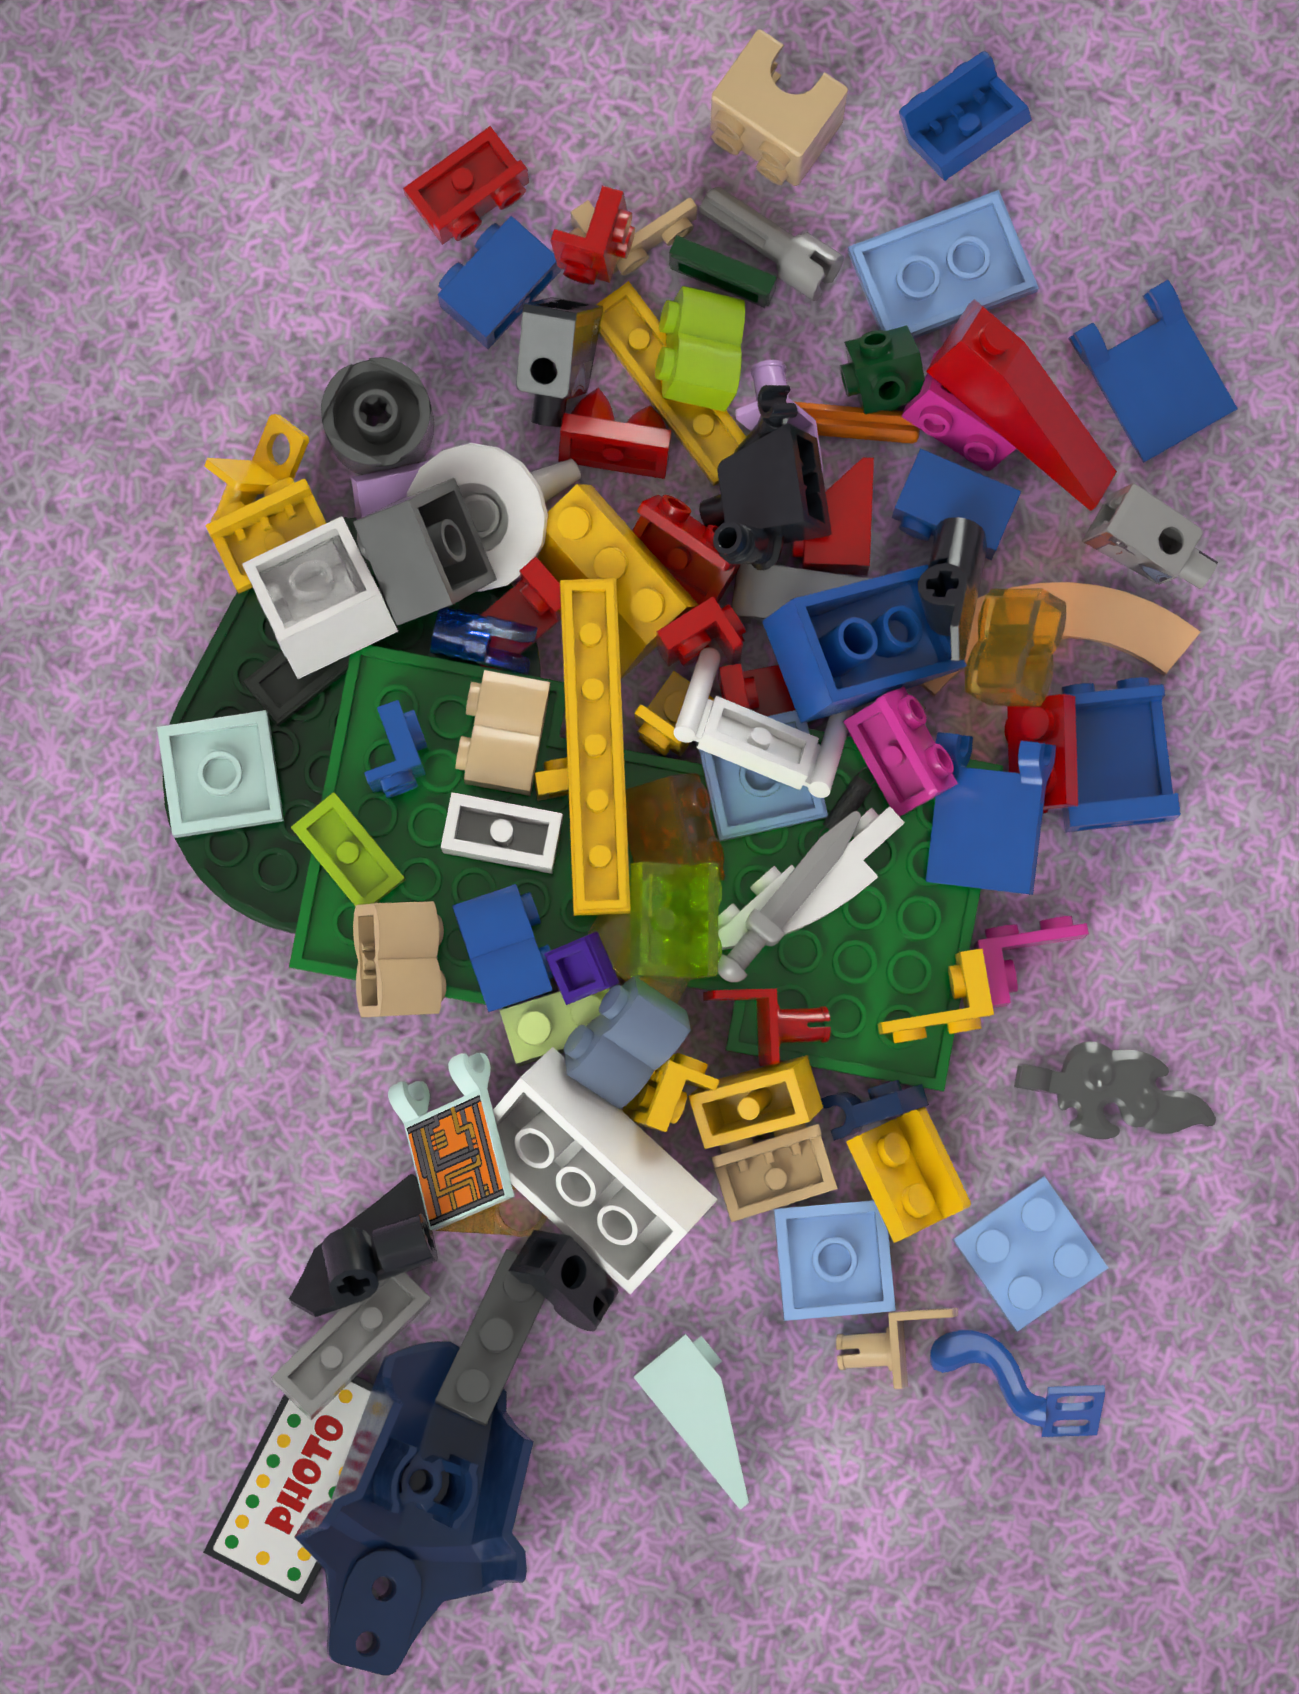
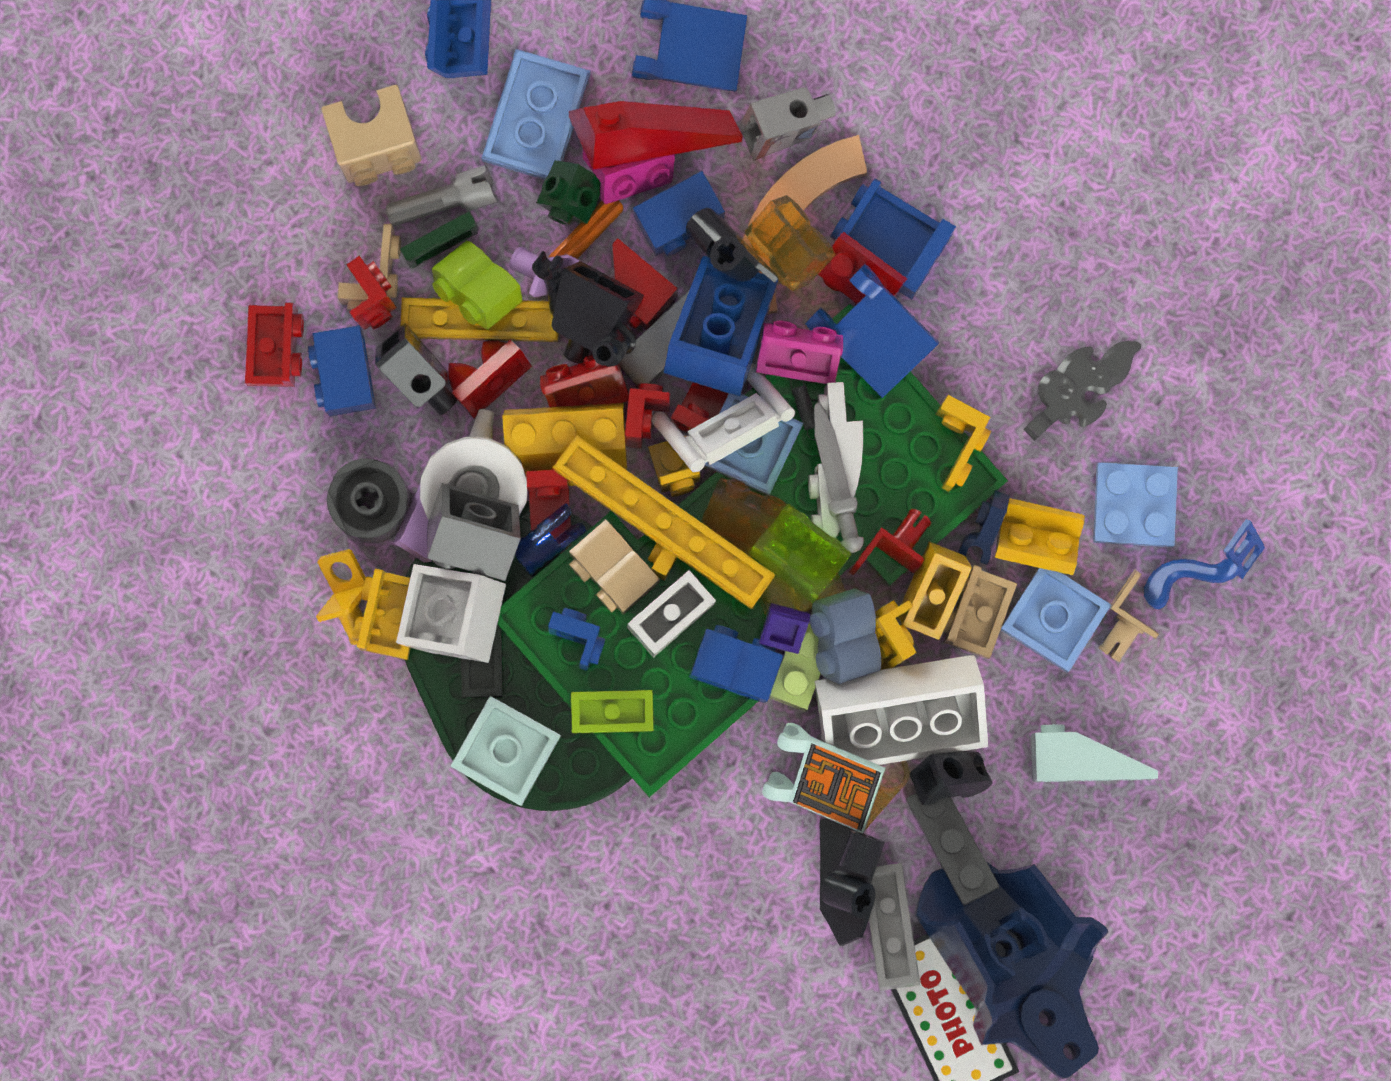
camera: 55 degrees left, 0 degrees up
(398, 959) = (696, 730): tan brick -> none
(1002, 972) = (948, 377): dark pink bracket -> none

